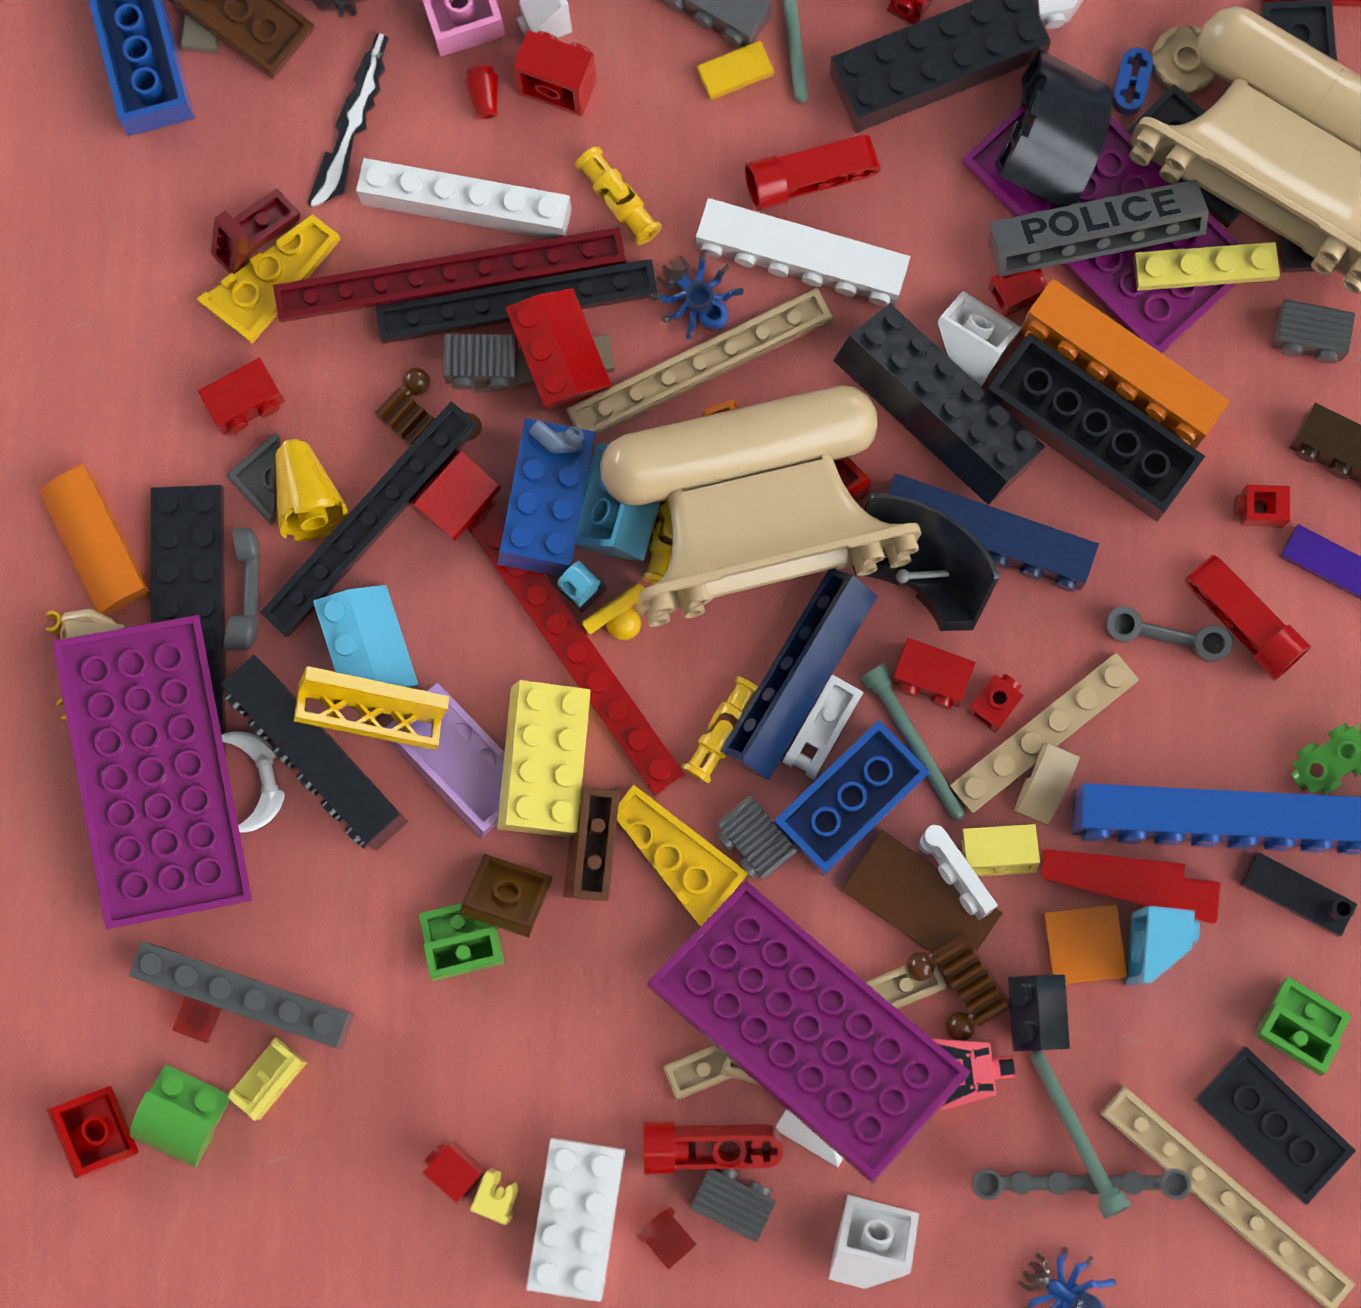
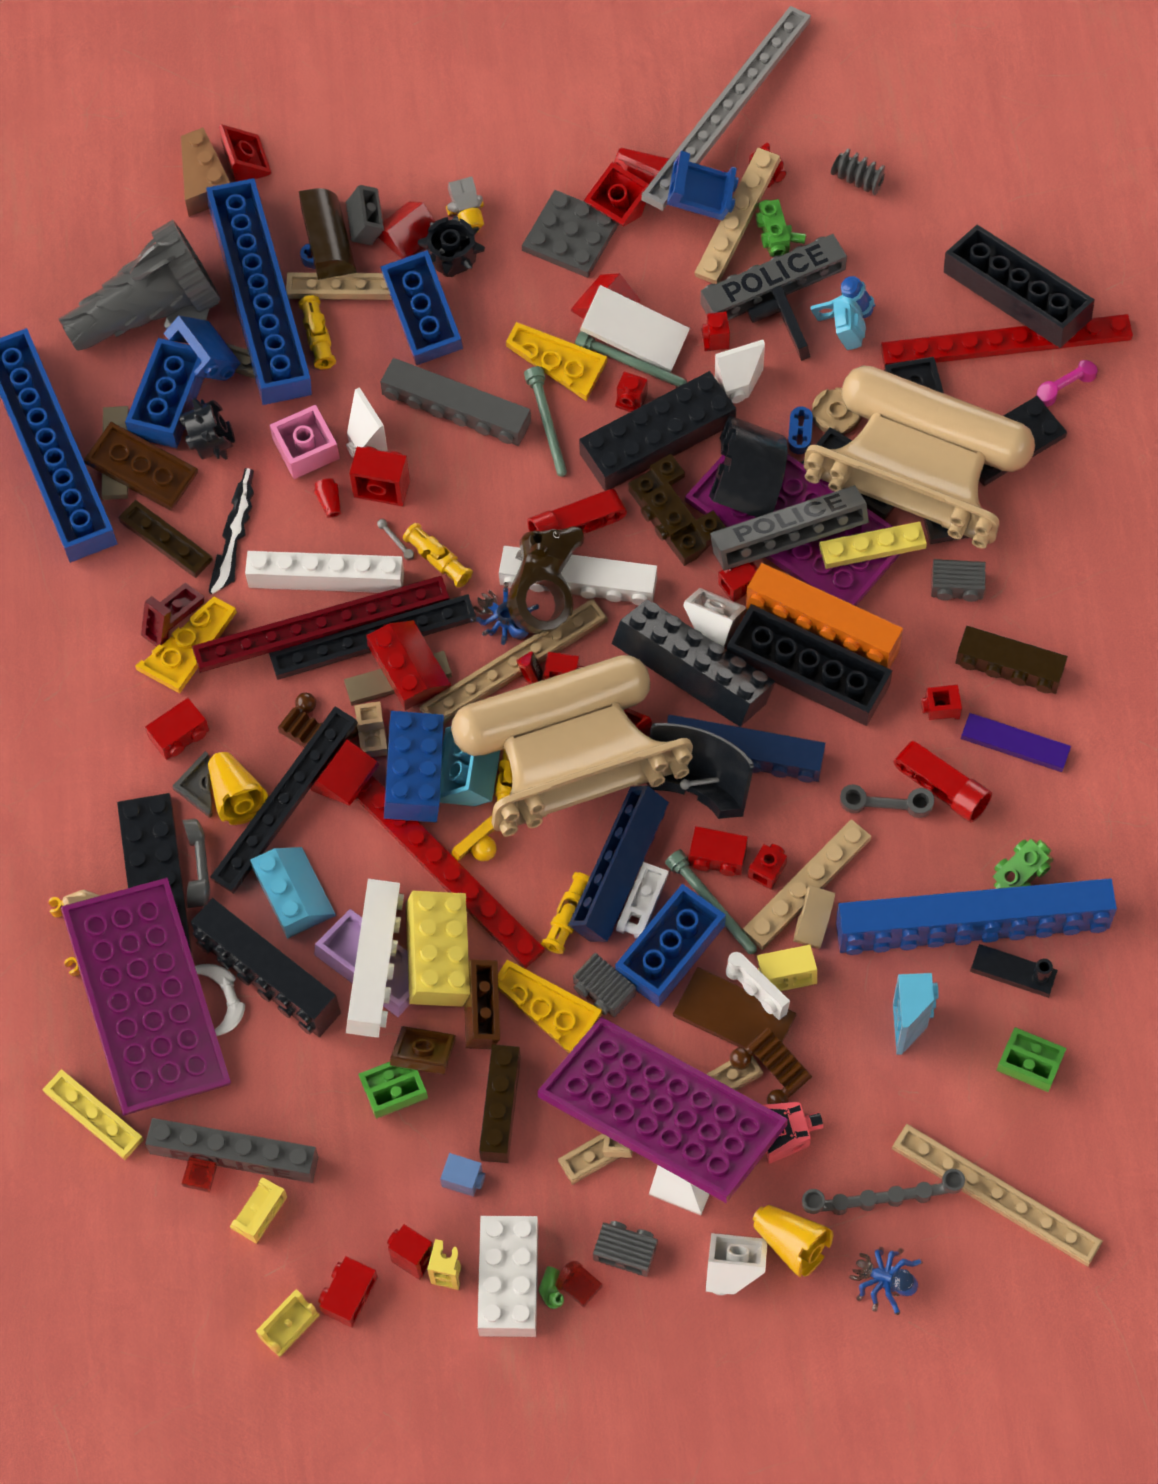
camera: 10 degrees left, 15 degrees down
(69, 917) = (93, 1114): none -> light yellow plate
(92, 1132) = (131, 1267): red slope -> none
(93, 541) = (77, 844): orange brick -> none
(179, 1115) = (194, 1246): bright green brick -> none
(258, 120) = (165, 538): none -> dark brown plate
(285, 1237) = (287, 1323): none -> light yellow hinge
(367, 1207) = (347, 1291): none -> red brick
(372, 696) = (303, 919): yellow fence -> none
(457, 763) = (373, 958): none -> white brick
(480, 360) = (352, 678): dark grey brick -> none
(497, 432) = (371, 729): none -> tan slope
(536, 1072) = (462, 1175): none -> medium blue brick
(557, 442) = (417, 722): sand blue arm -> none
(579, 186) = (408, 553): none -> light grey hinge
(580, 586) = (447, 825): medium azure leg -> none
(597, 982) = (500, 1103): none -> dark brown brick
(627, 1242) = (548, 1290): none -> bright green arm
(667, 1147) = (570, 1214): red beam -> none
(720, 379) = (530, 668): none -> red slope
(735, 70) = (511, 460): yellow tile -> none
(756, 234) = (542, 562): none -> dark brown animal
(762, 384) = (560, 663): none -> red brick
(937, 180) = (669, 514): none -> dark brown bracket
(951, 1223) = (793, 1238): none -> yellow cone
(1039, 1012) = (833, 1077): black brick -> none
(1085, 944) = (861, 1028): orange tile -> none
(1110, 1198) = (908, 1202): sand green piece -> none
(1134, 881) = (884, 971): red wedge -> none
(1274, 1125) = (1023, 1135): black plate -> none

